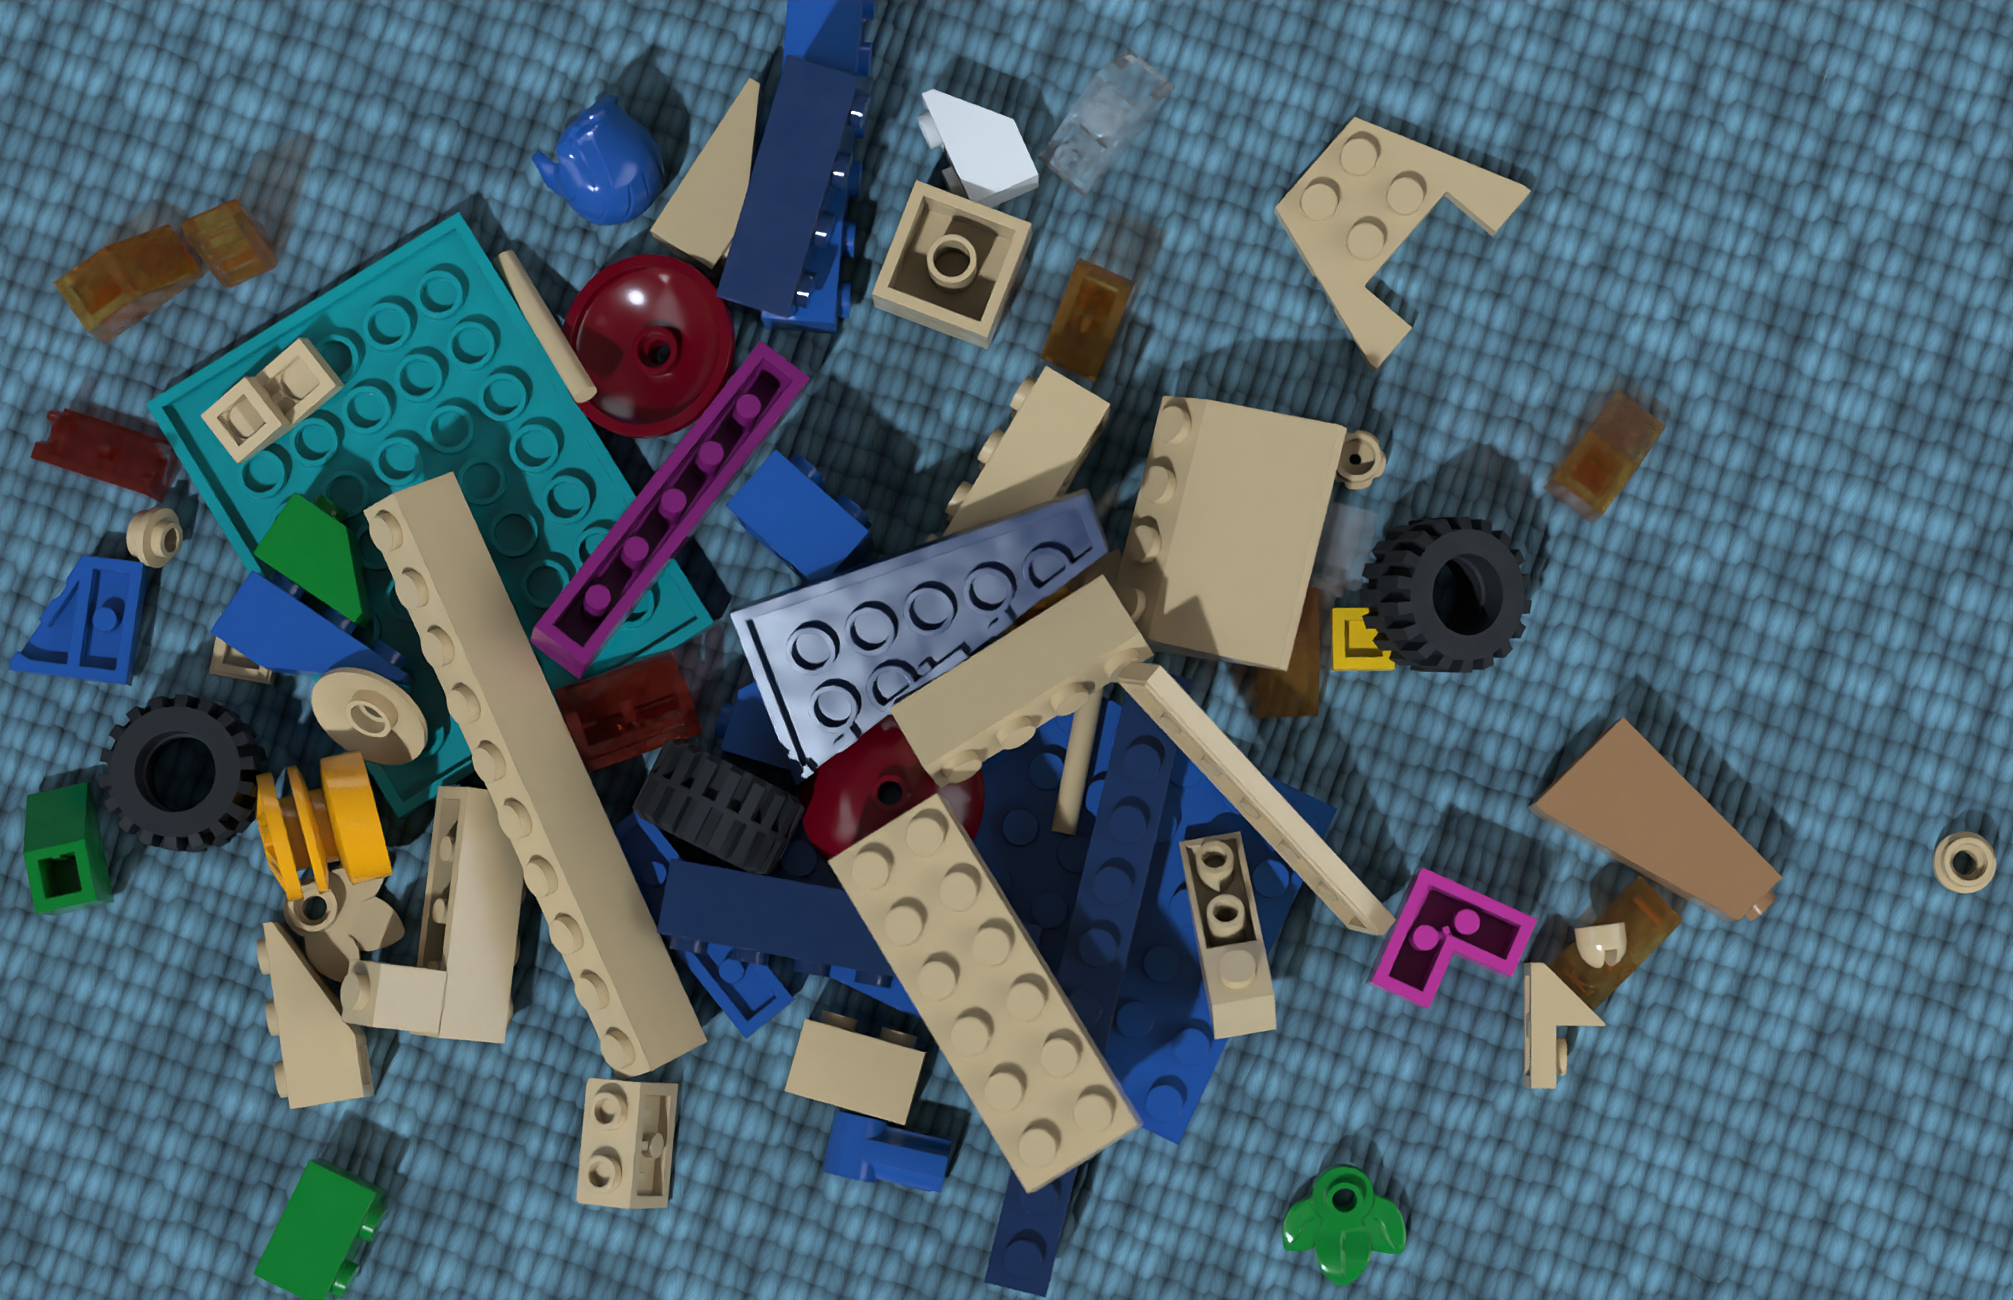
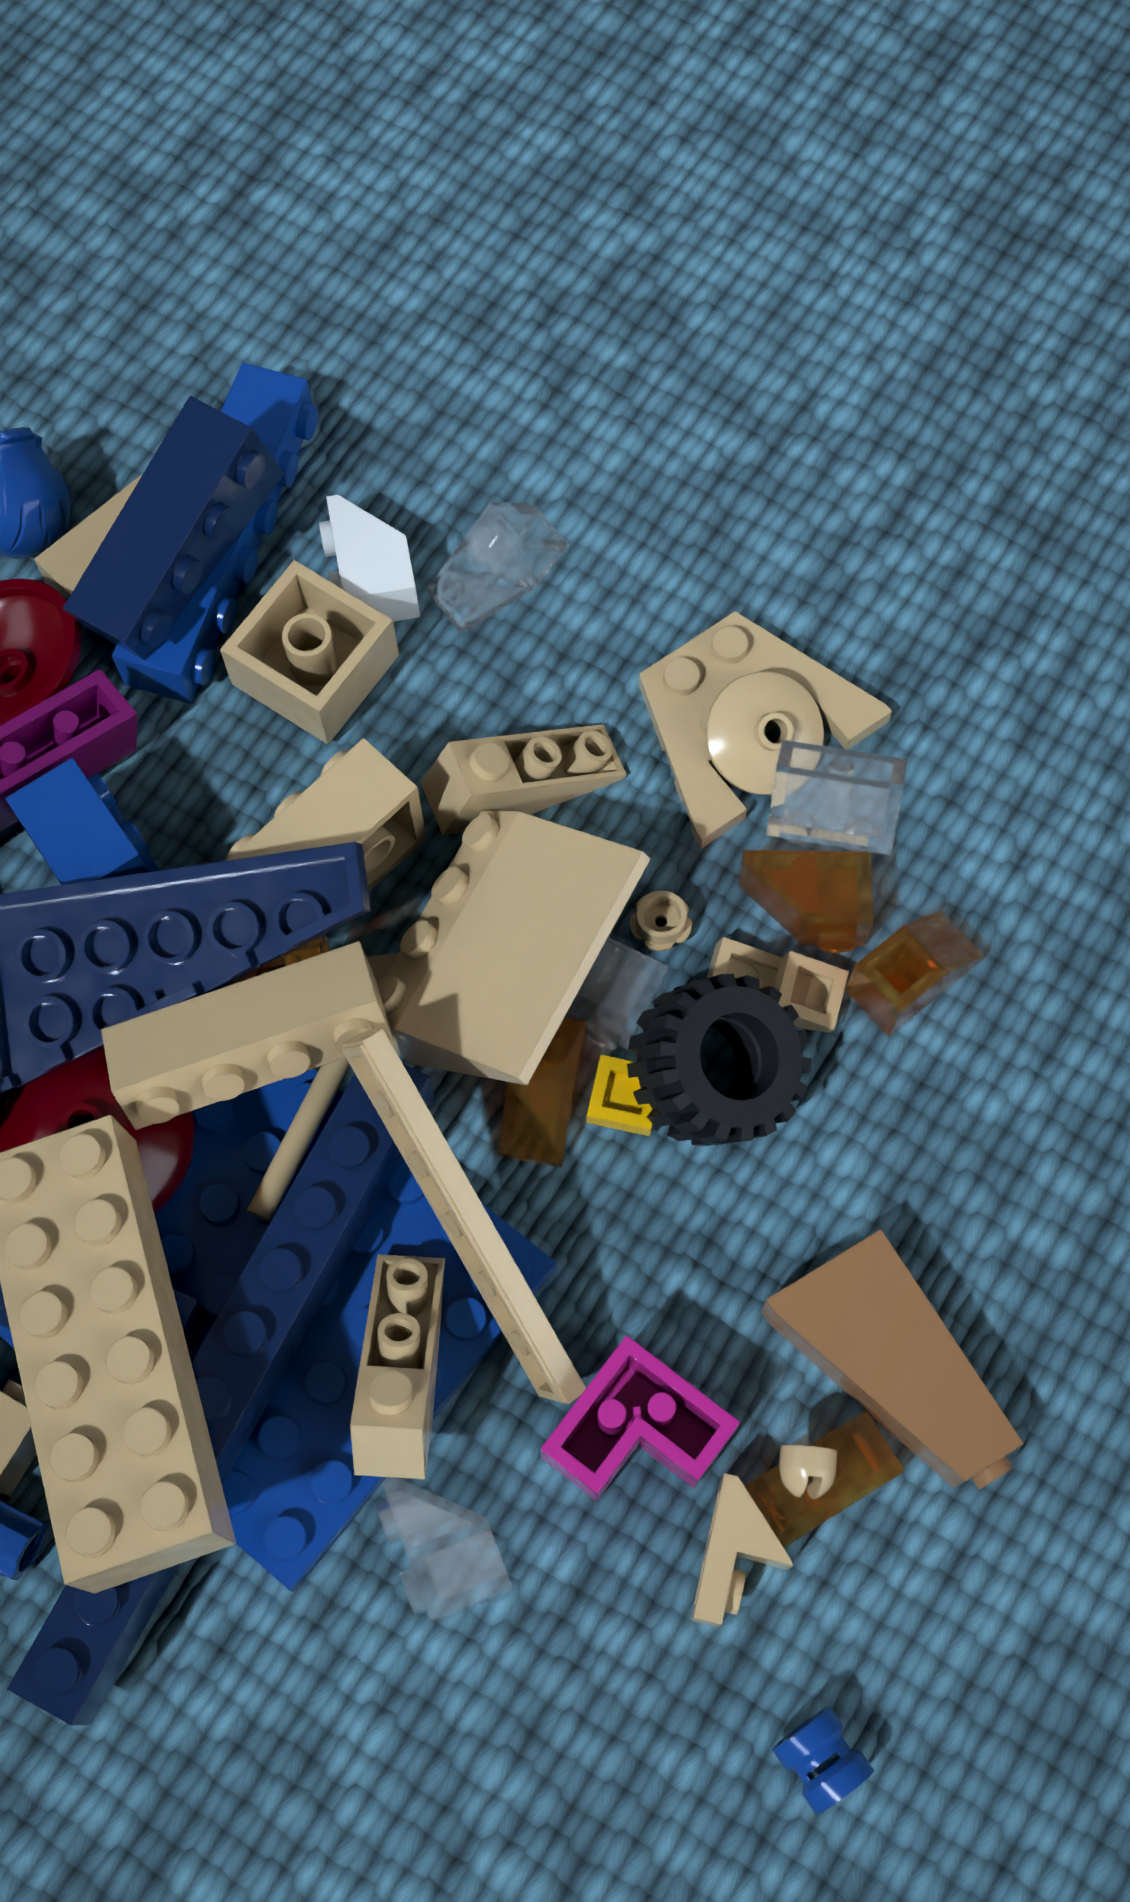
camera: 10 degrees right, 15 degrees down
(1088, 319) = (434, 713): clear orange slope -> none
(1187, 343) = (518, 773): none -> tan slope
(1308, 1080) = (448, 1550): none -> clear slope
(1344, 1233) = (447, 1739): green plate -> none
(1389, 242) = (738, 723): none -> tan dish
(1496, 494) = (805, 983): none -> tan slope
(1497, 403) = (813, 894): none -> clear orange slope
(1498, 302) = (836, 797): none -> clear brick
(1661, 1174) = (811, 1746): none -> blue wheel

